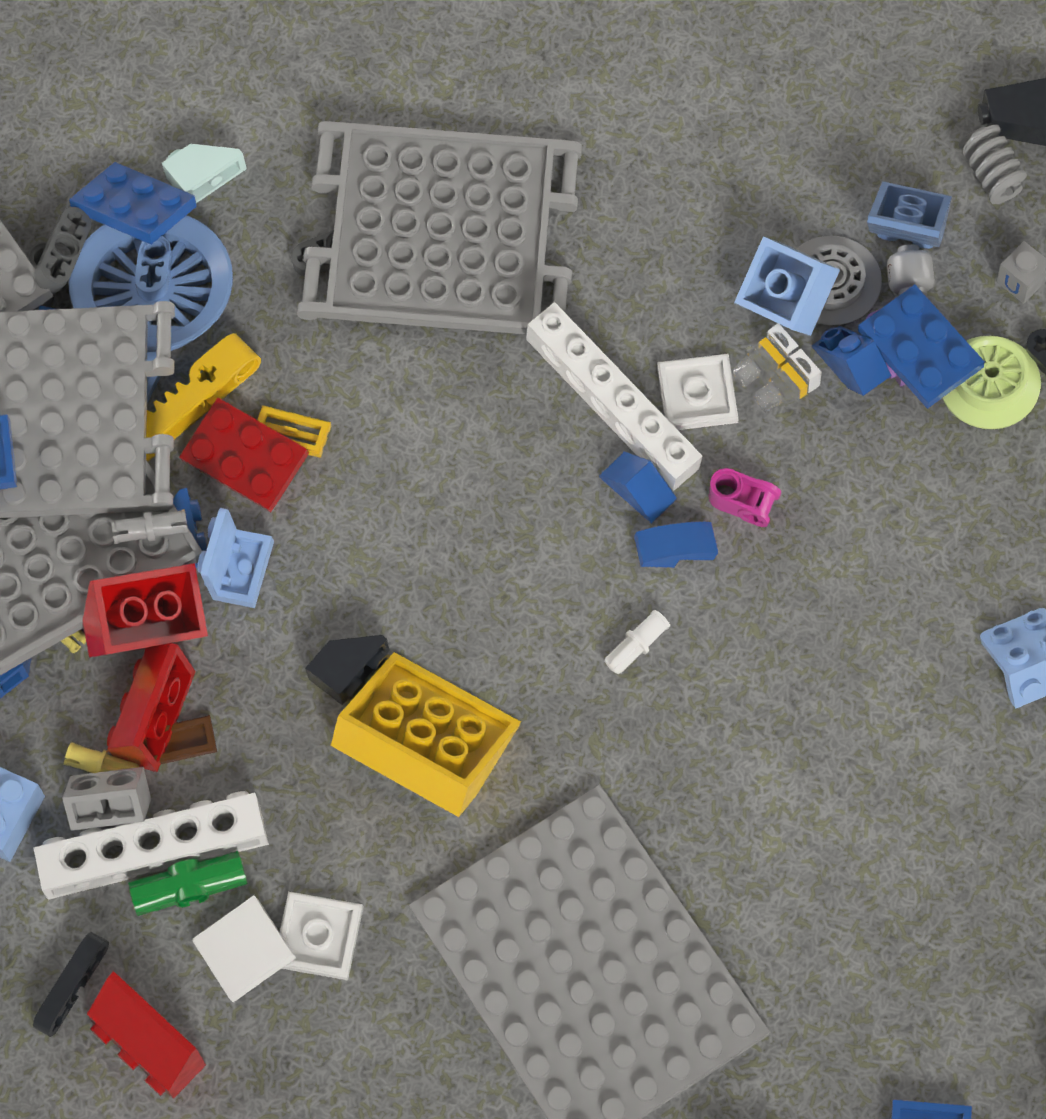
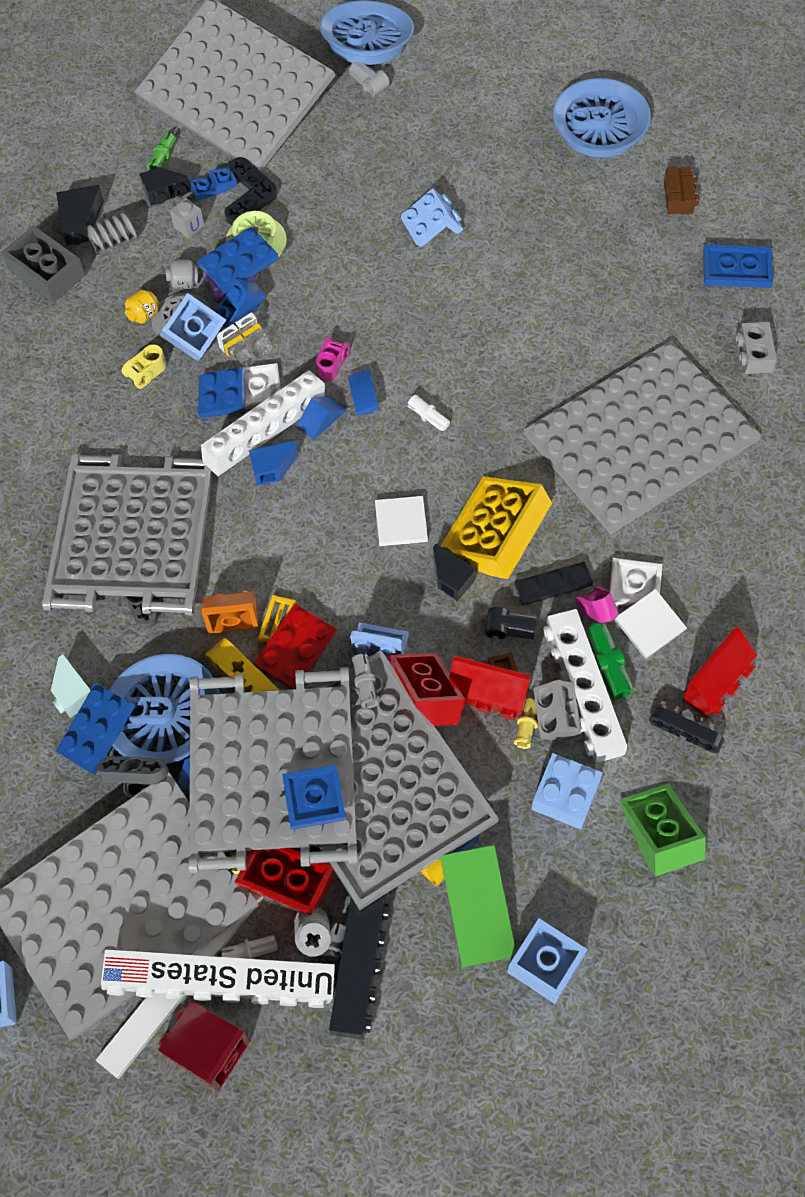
camera: 95 degrees left, 5 degrees down
(257, 740) = (503, 624): none -> black piece
(273, 871) = (598, 605): none -> dark pink piece
(299, 362) = (230, 612): none -> orange slope
(326, 816) = (553, 583): none -> black plate
(446, 600) = (401, 521): none -> white tile
(549, 415) = (273, 461): none -> blue slope
(681, 340) = (221, 392): none -> blue plate
(728, 226) = (145, 366): none -> light yellow piece
(844, 216) = (141, 306): none -> yellow head
(909, 215) = (148, 263): medium blue slope -> none
(924, 70) = (43, 263): none -> dark grey brick

